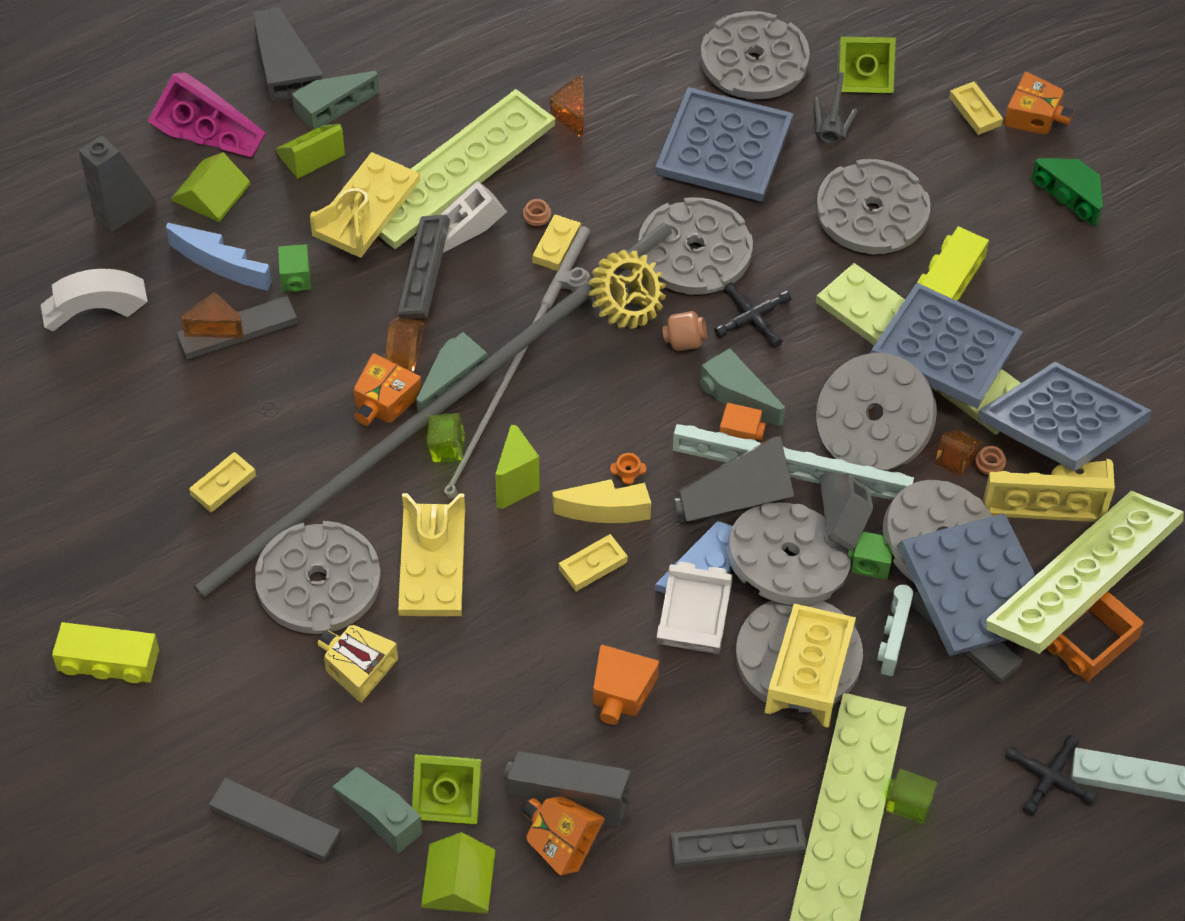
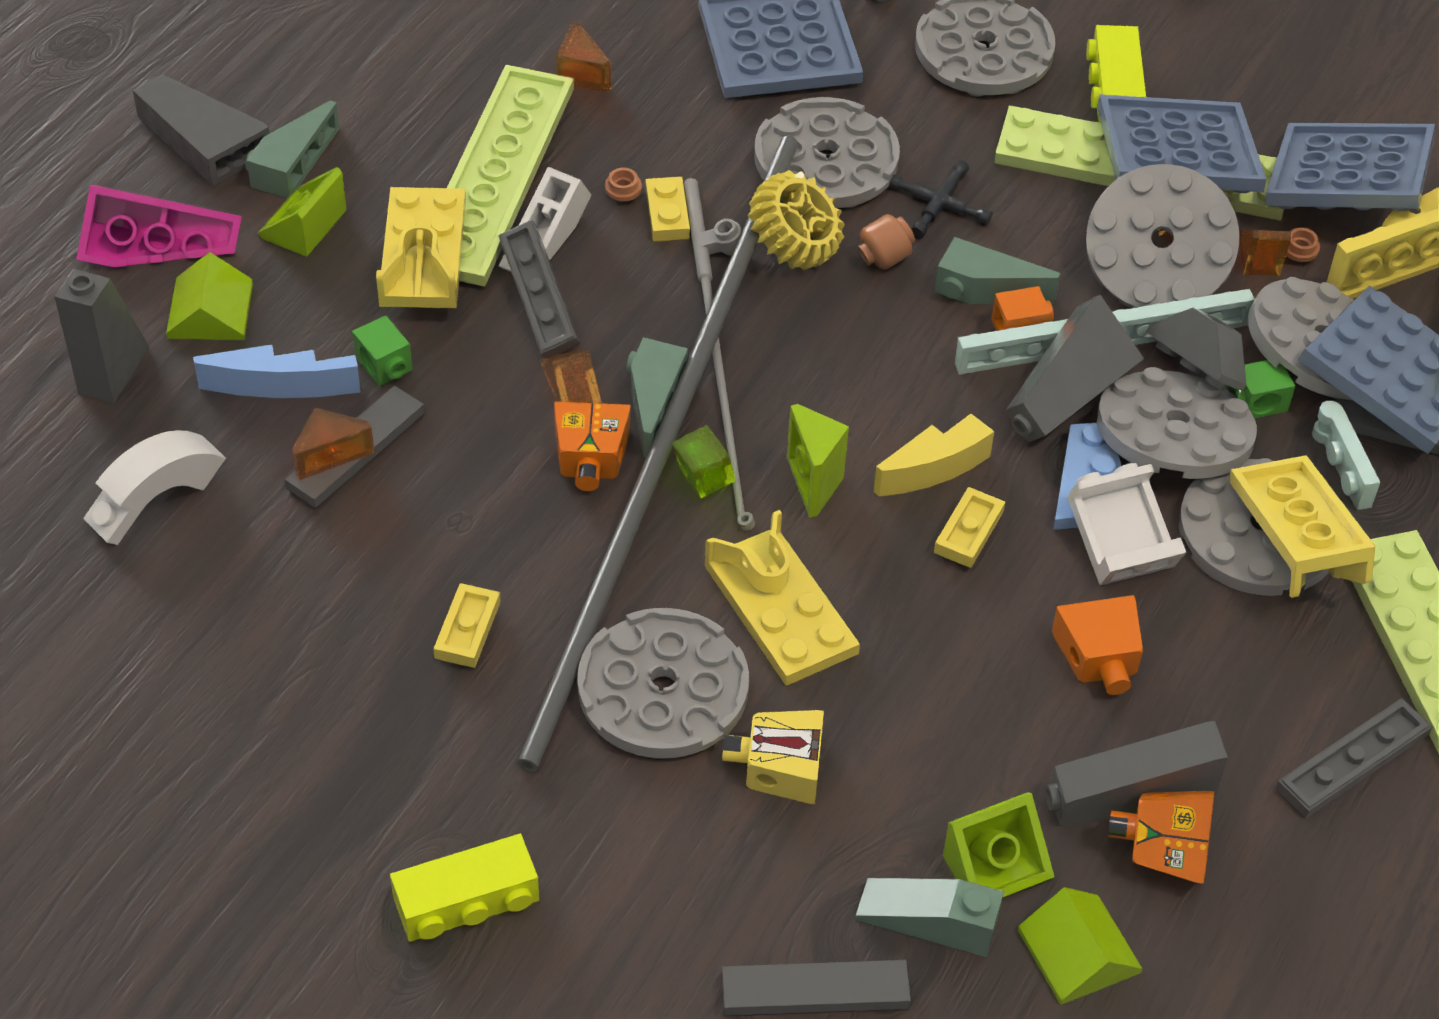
camera: 30 degrees left, 5 degrees down
(628, 460) = (929, 410): orange plate -> none

